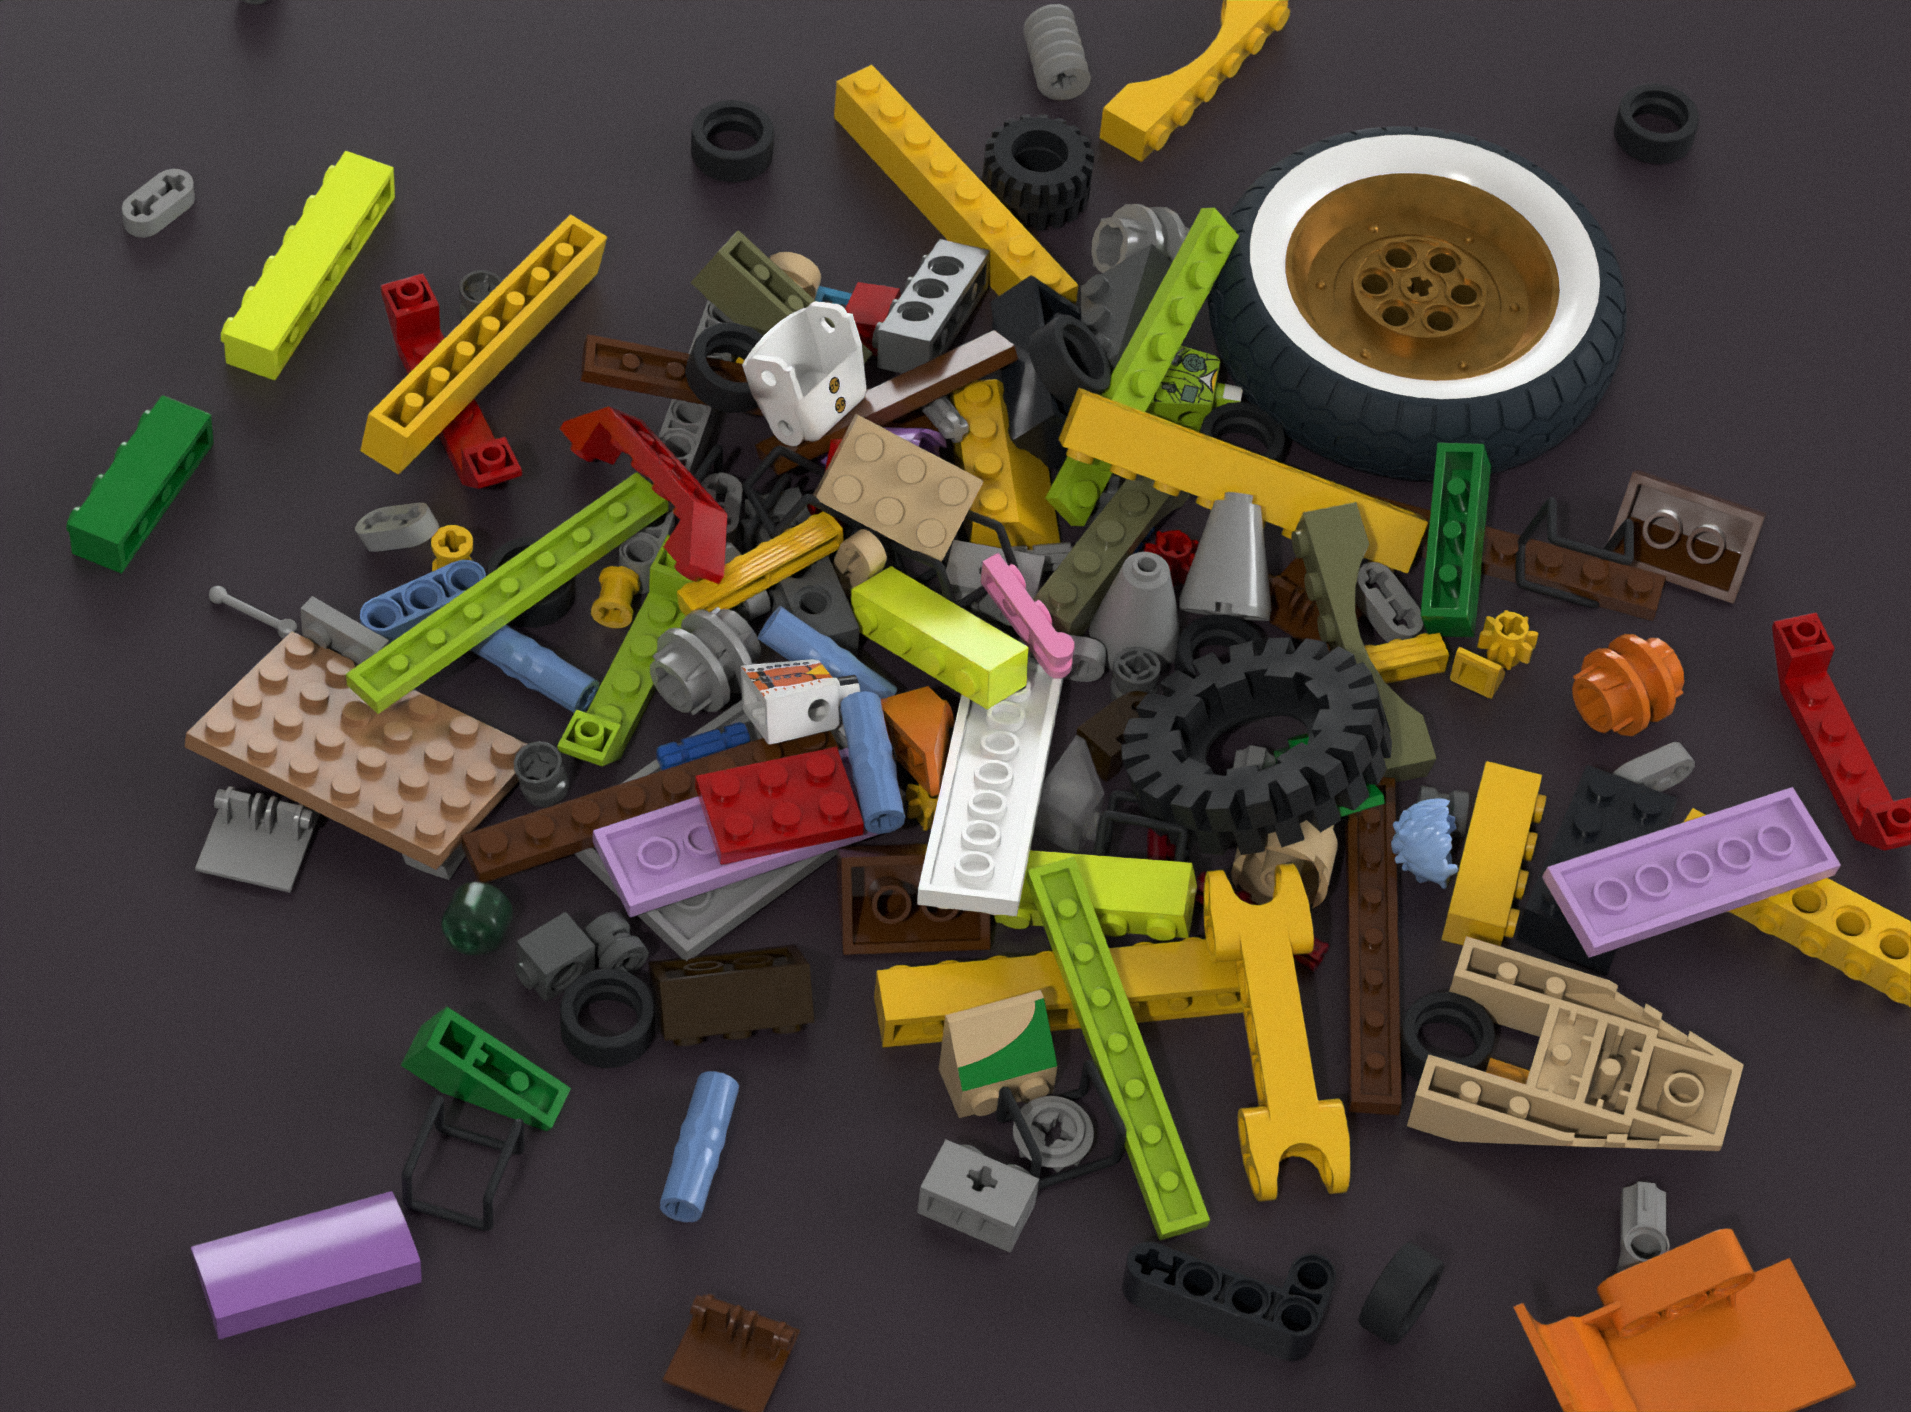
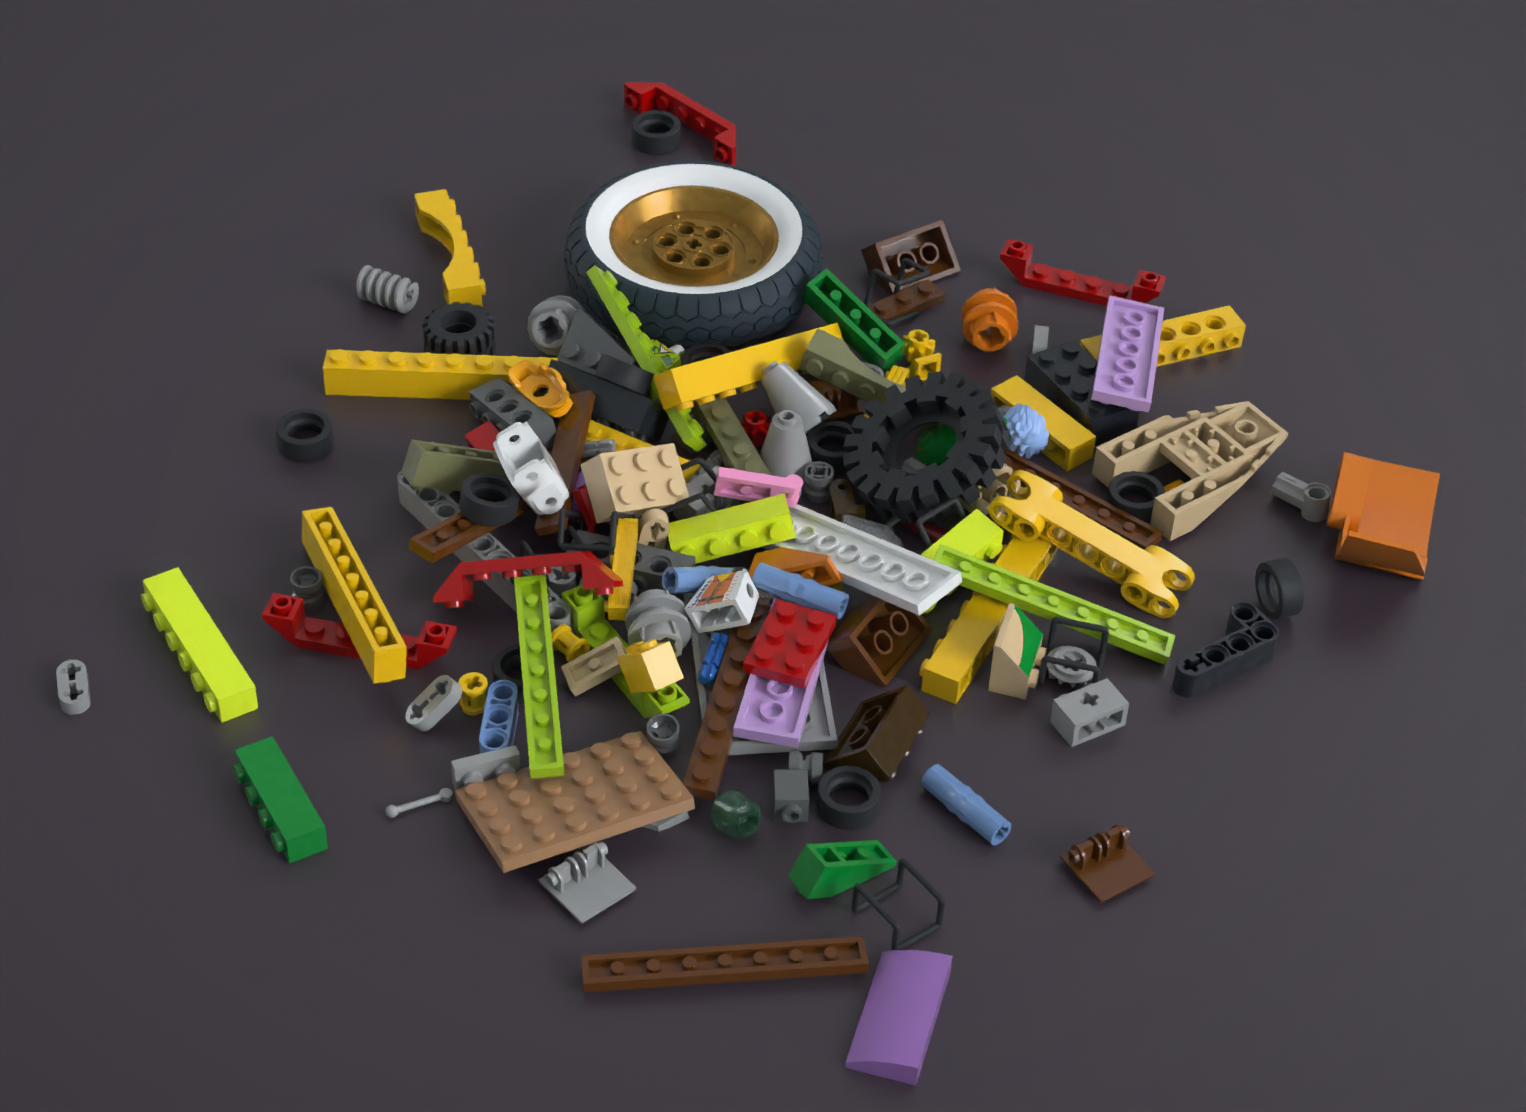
camera: 50 degrees left, 10 degrees down
(241, 1044) = (724, 964): none -> reddish brown plate
(538, 668) = (592, 699): medium blue axle -> none
(595, 642) = (594, 666): none -> tan plate
(599, 686) = (649, 666): none -> yellow brick
(986, 276) = (529, 377): none -> light orange piece
(1719, 73) = (648, 96): none -> red slope

